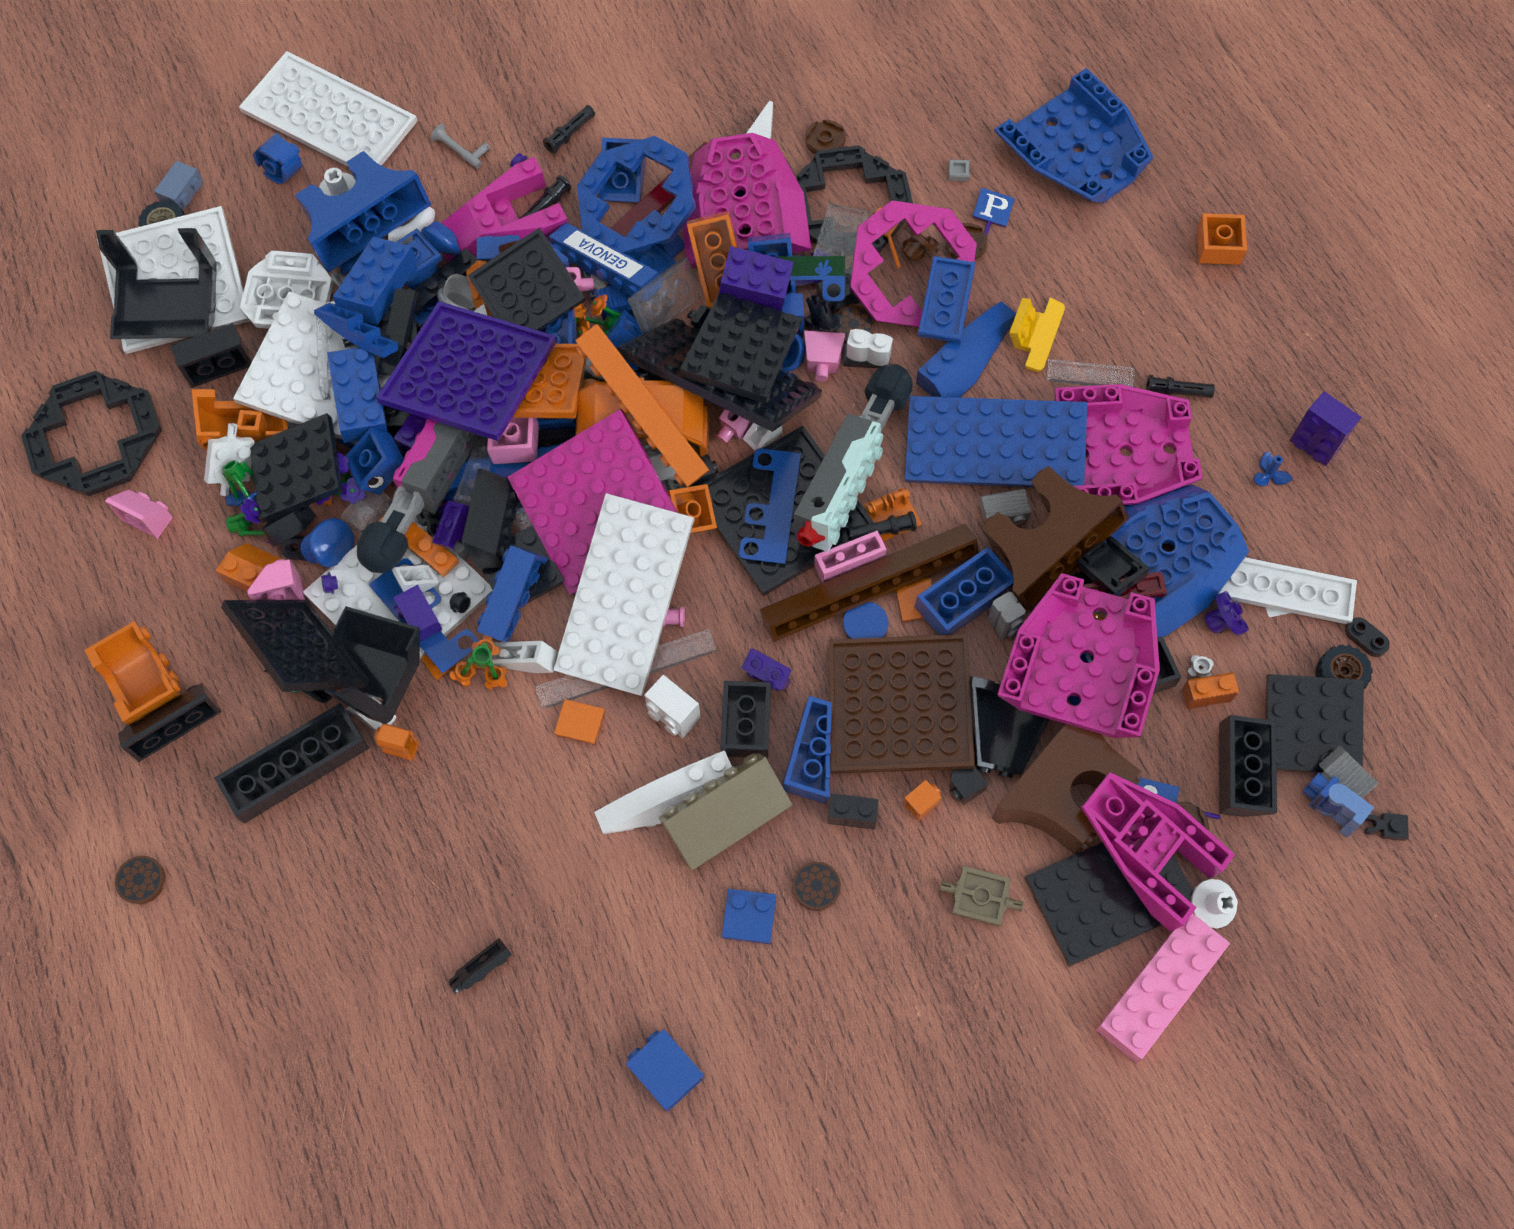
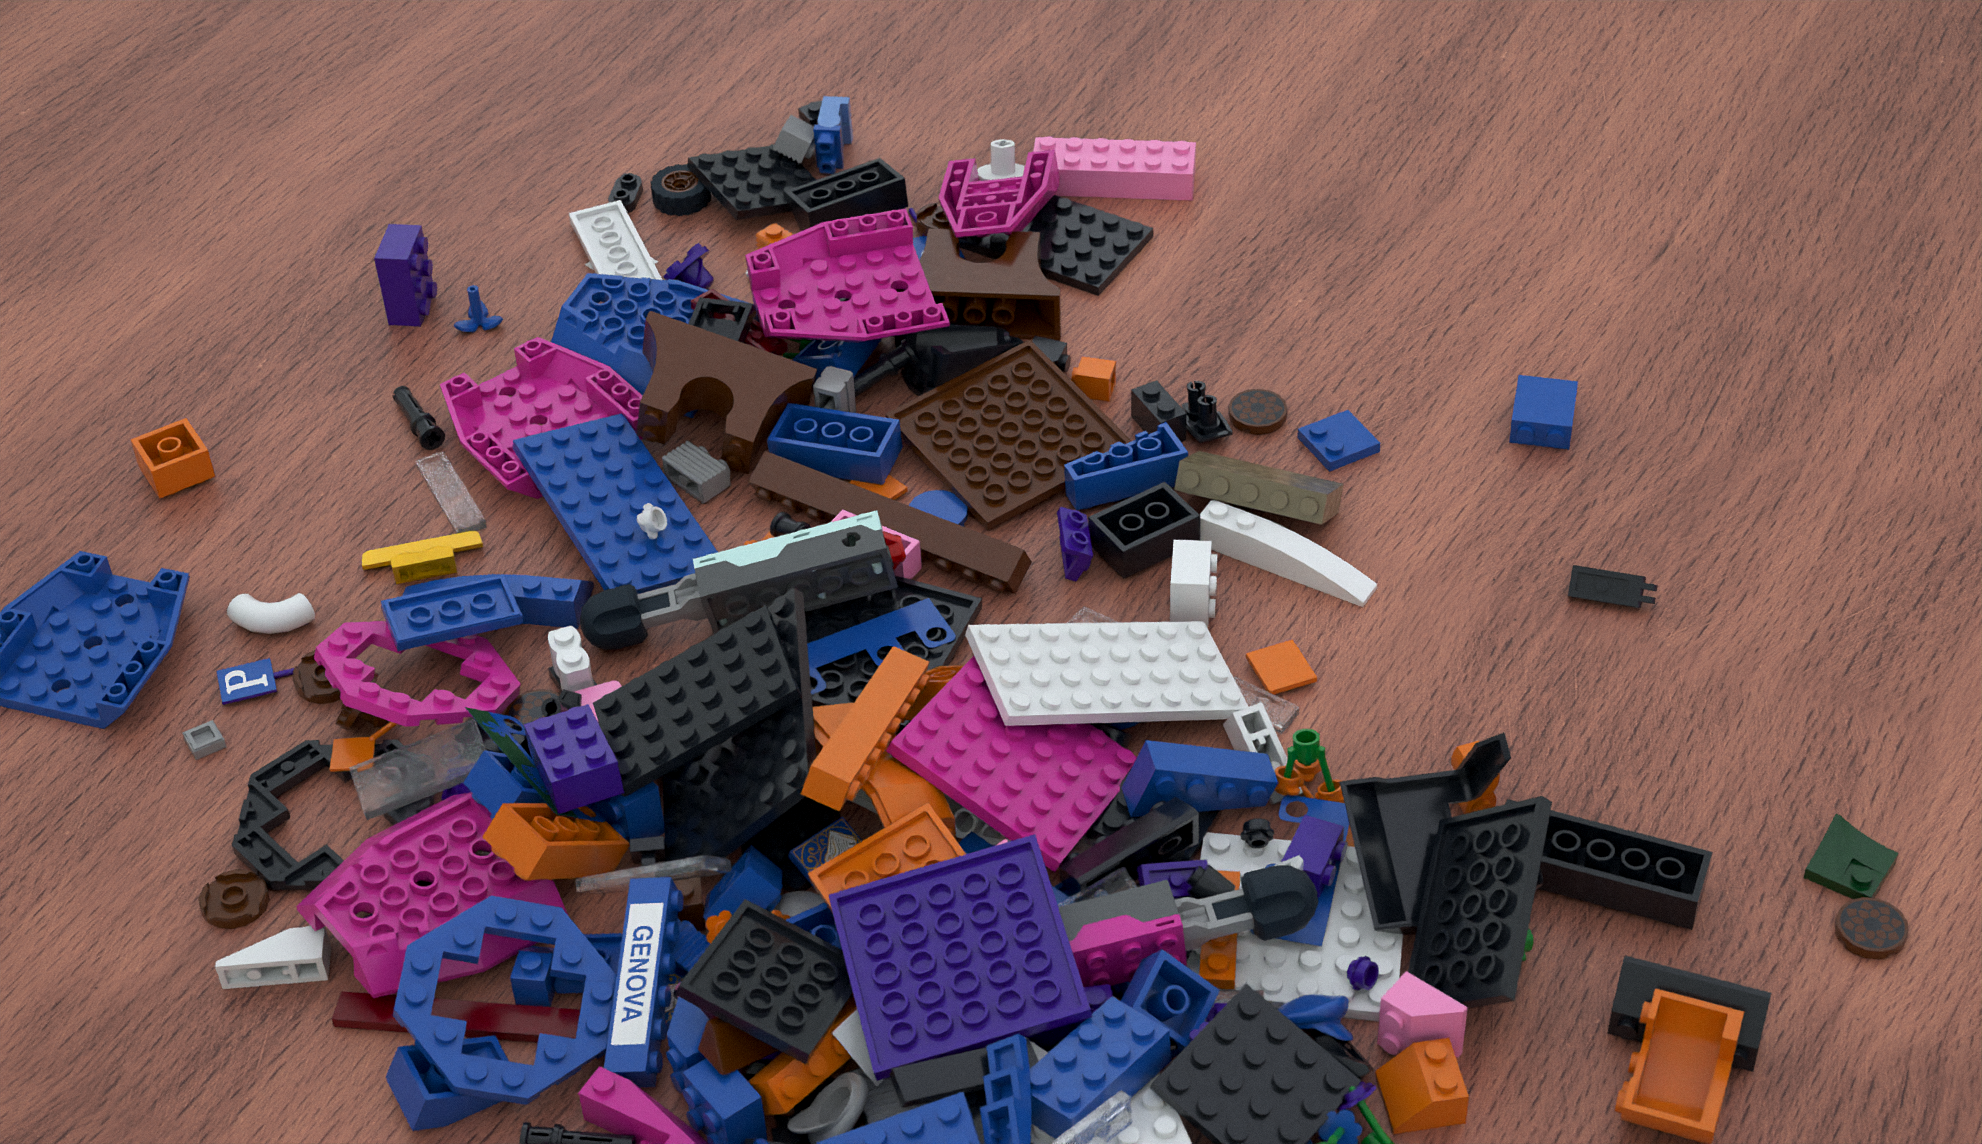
camera: 125 degrees left, 25 degrees down
(183, 910) = (1850, 861): none -> dark green plate
(425, 534) = (1208, 883): none -> black brick
(830, 841) = (1202, 416): none -> black connector
(951, 444) = (652, 520): none -> white plate
(981, 896) = (1148, 304): dark tan plate -> none
(1033, 232) = (270, 617): none -> white cylinder

